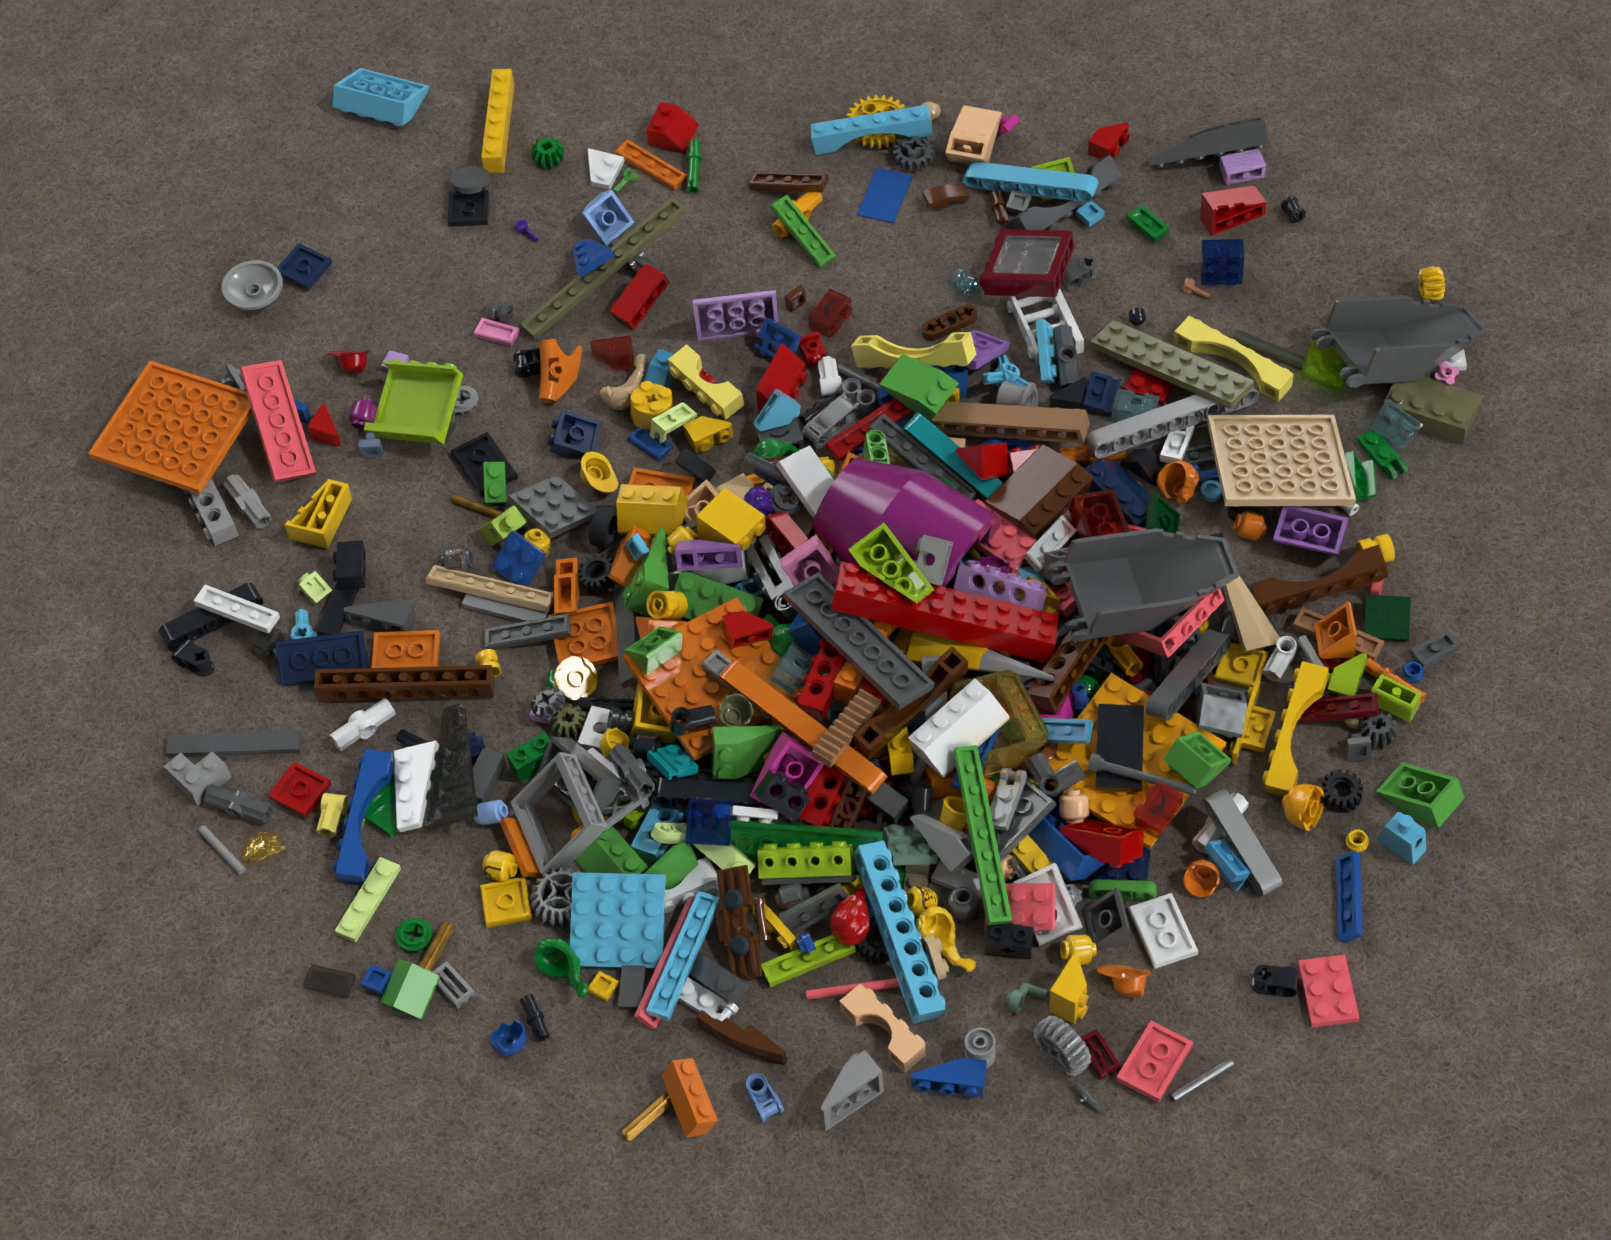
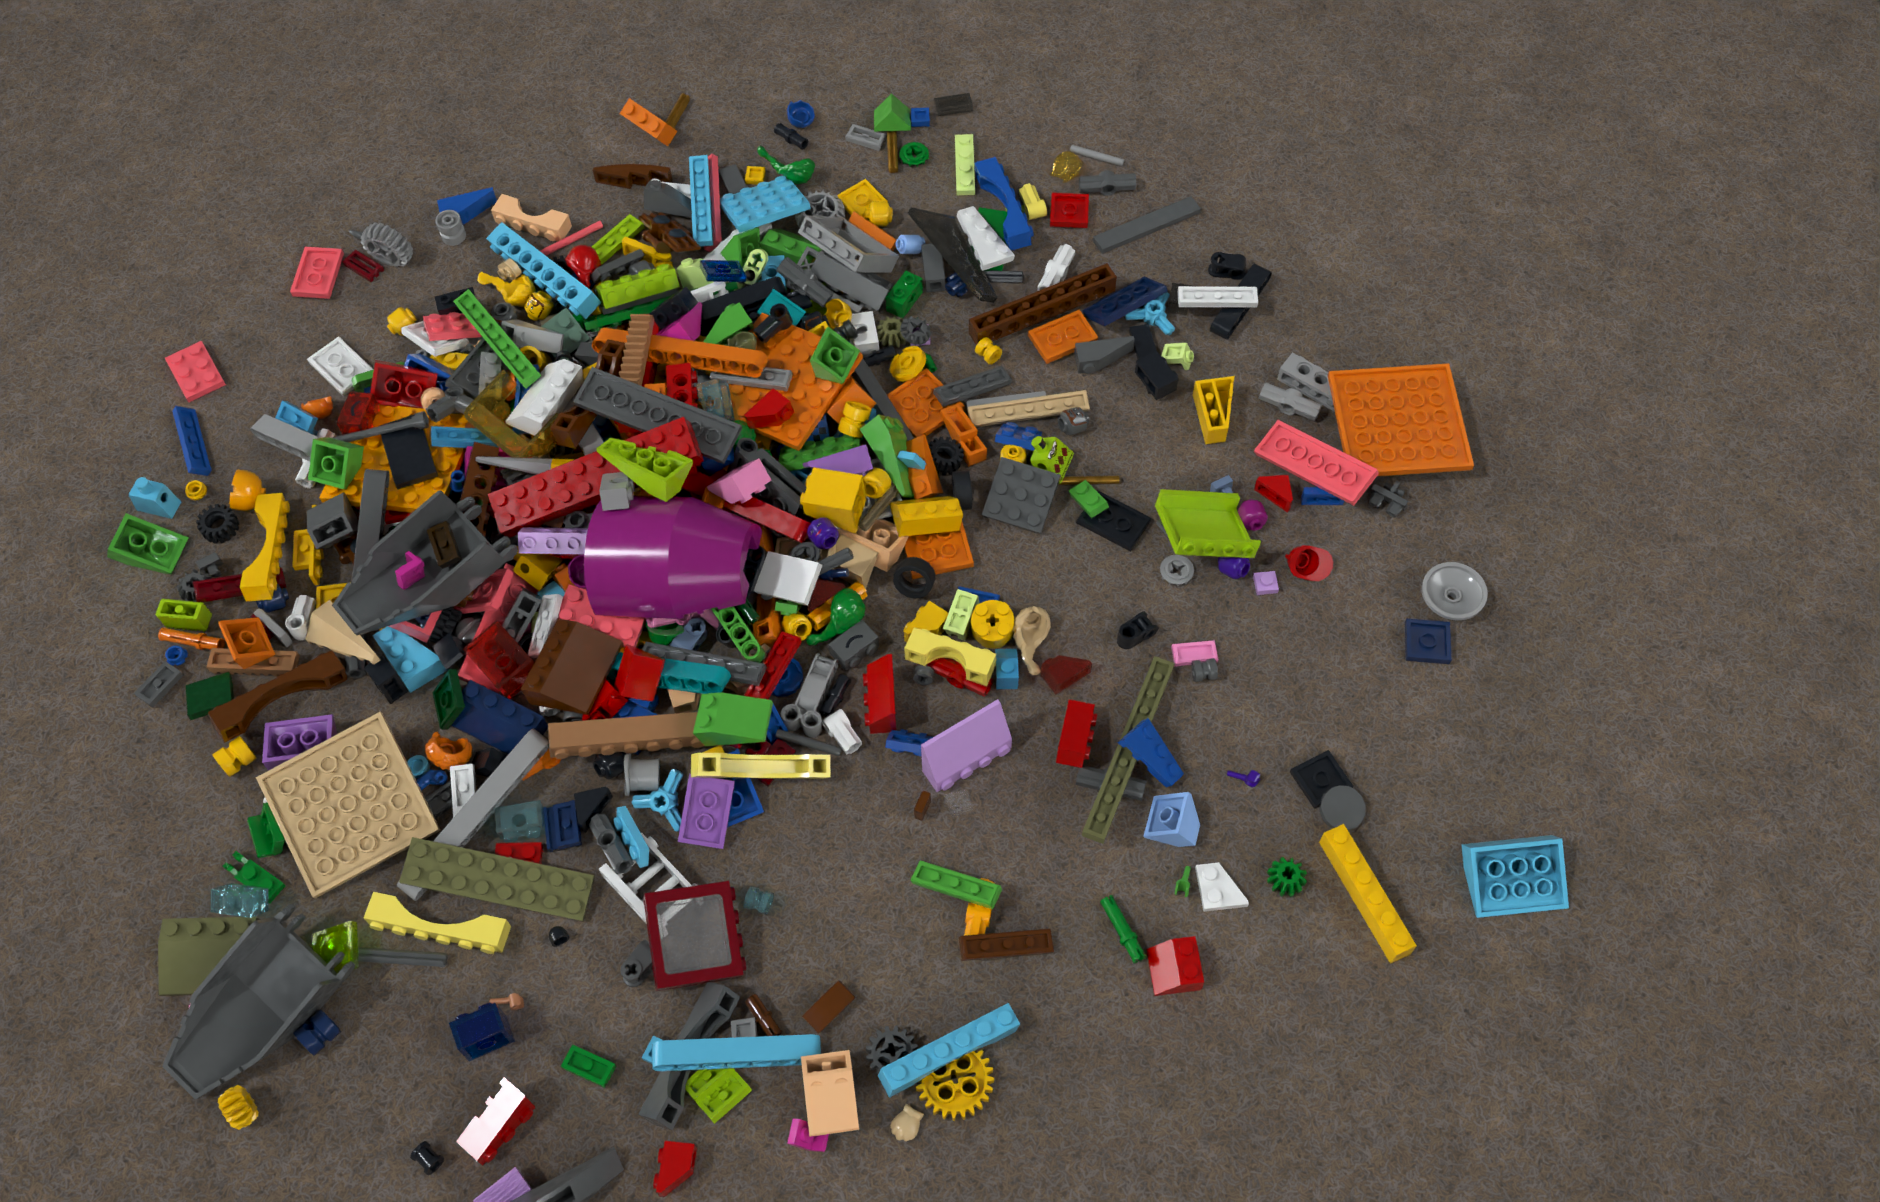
camera: 150 degrees right, 5 degrees up
(195, 779) = (1153, 182): light grey brick -> none
(557, 370) = (1104, 623): orange pin -> none
(573, 434) = (1047, 571): dark blue plate -> none
(598, 472) = (998, 538): yellow piece -> none
(651, 165) = (1171, 915): orange tile -> none
(765, 1100) = (599, 148): medium blue piece -> none
(777, 411) = (864, 653): medium azure slope -> none
(805, 943) = (612, 241): blue plate -> none
(812, 349) = (877, 760): red brick -> none
(830, 313) = (877, 802): clear red brick -> none
(854, 1087) = (531, 165): light grey slope -> none
(885, 195) = (899, 988): blue window -> none
(955, 315) = (758, 832): reddish brown beam -> none
(1016, 999) = (438, 271): sand green plate -> none
(1069, 992) = (394, 280): yellow slope -> none
(1108, 921) = (383, 346): dark grey slope -> none
(1114, 591) = (444, 544): none -> dark brown plate
(1126, 980) = (358, 315): orange piece -> none
(1154, 584) = (410, 572): none -> dark pink bracket
(1202, 1079) = (278, 277): flat silver bar -> none
(1278, 980) = (236, 358): black piece -> none
(1347, 676) = (230, 610): lime slope -> none

